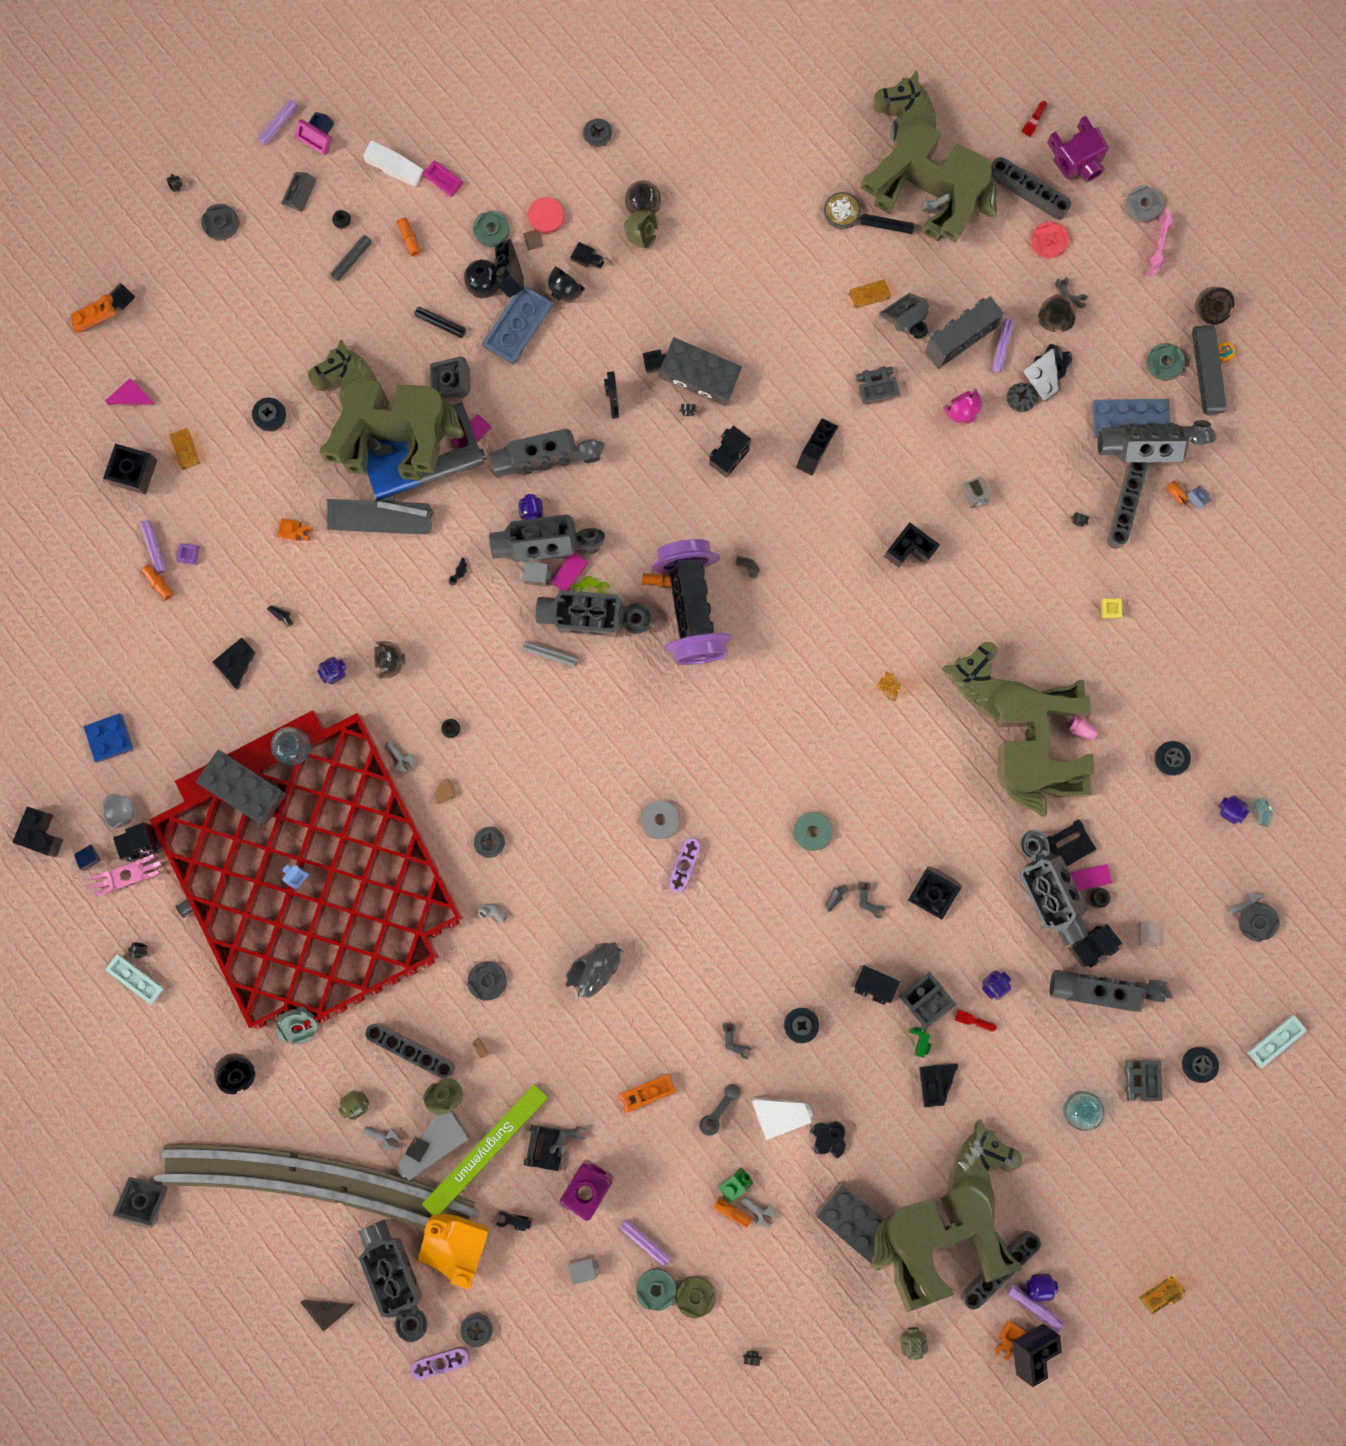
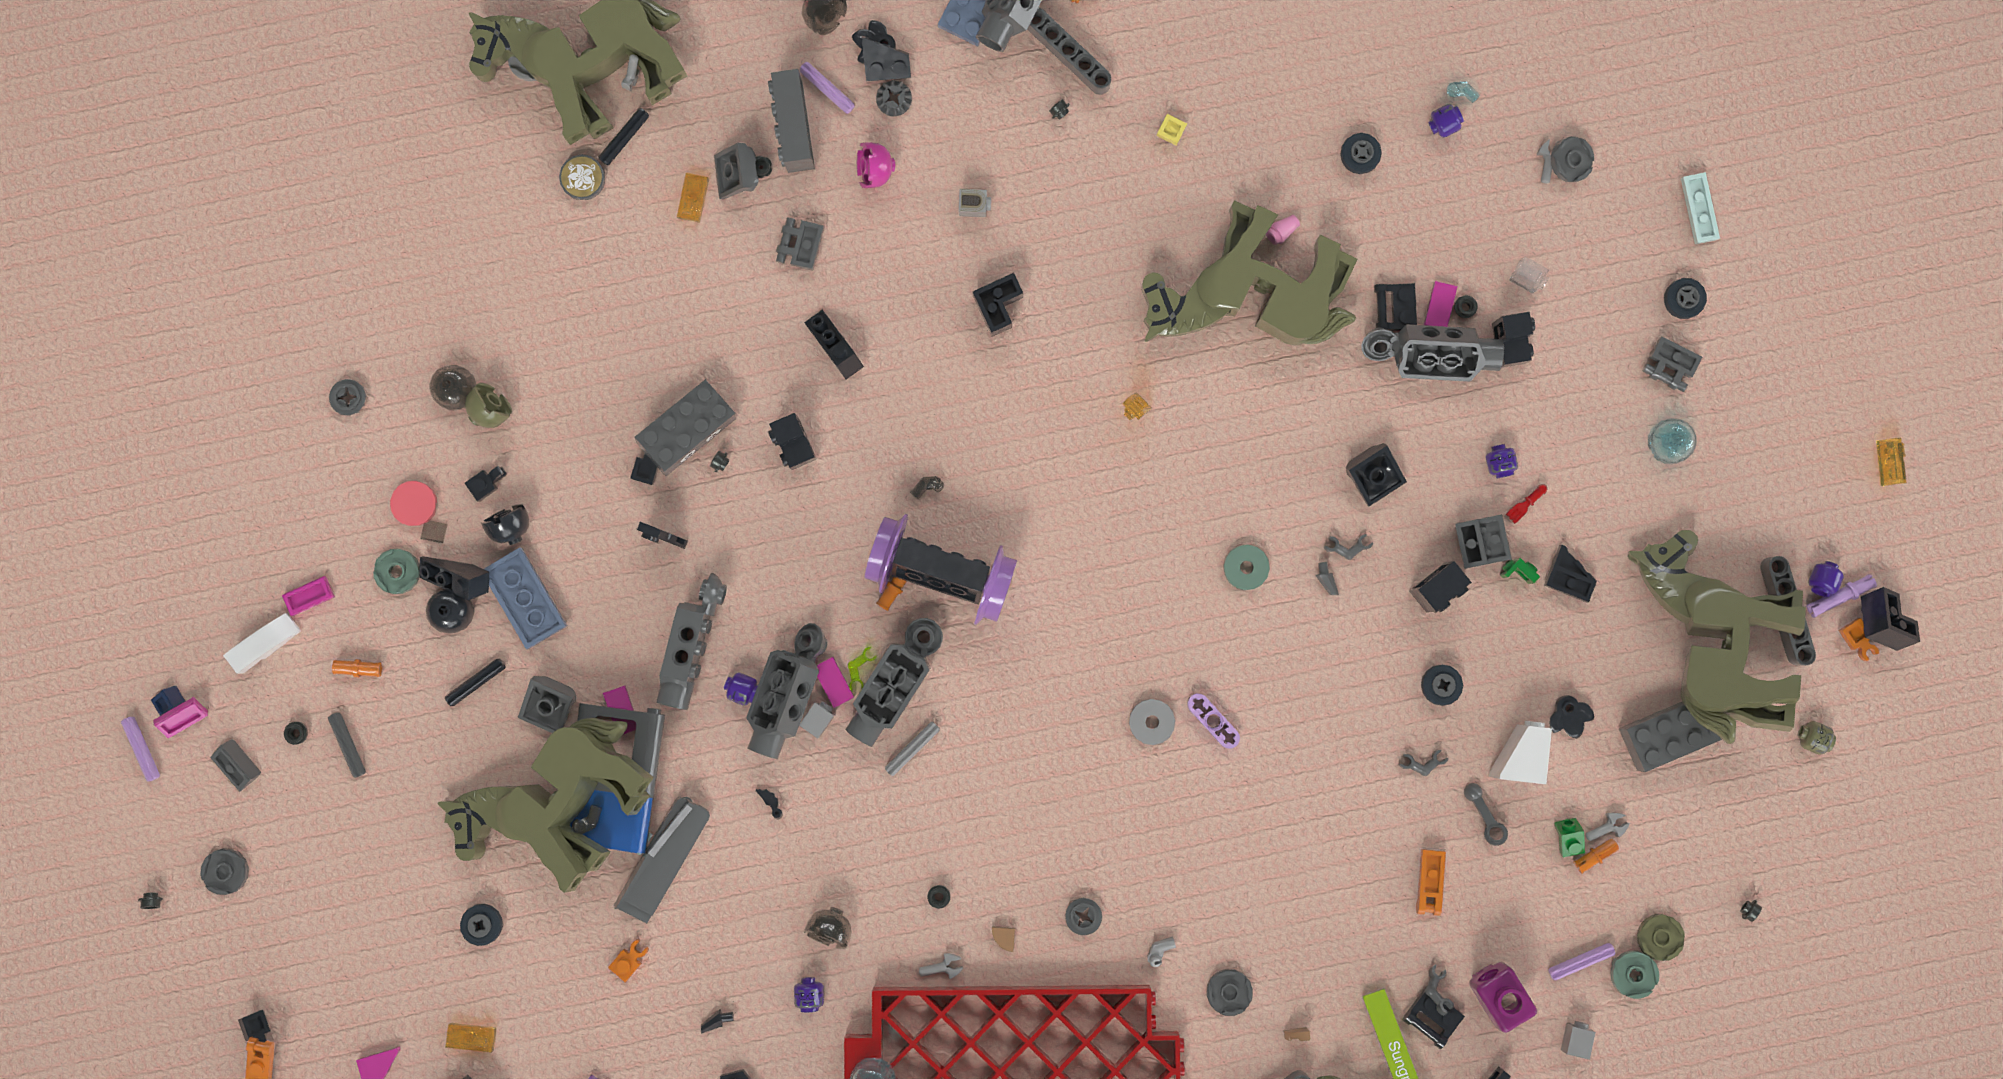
camera: 65 degrees left, 5 degrees up
(594, 969) = (1277, 872): dark grey head -> none
(1129, 994) = (1585, 334): dark grey brick -> none

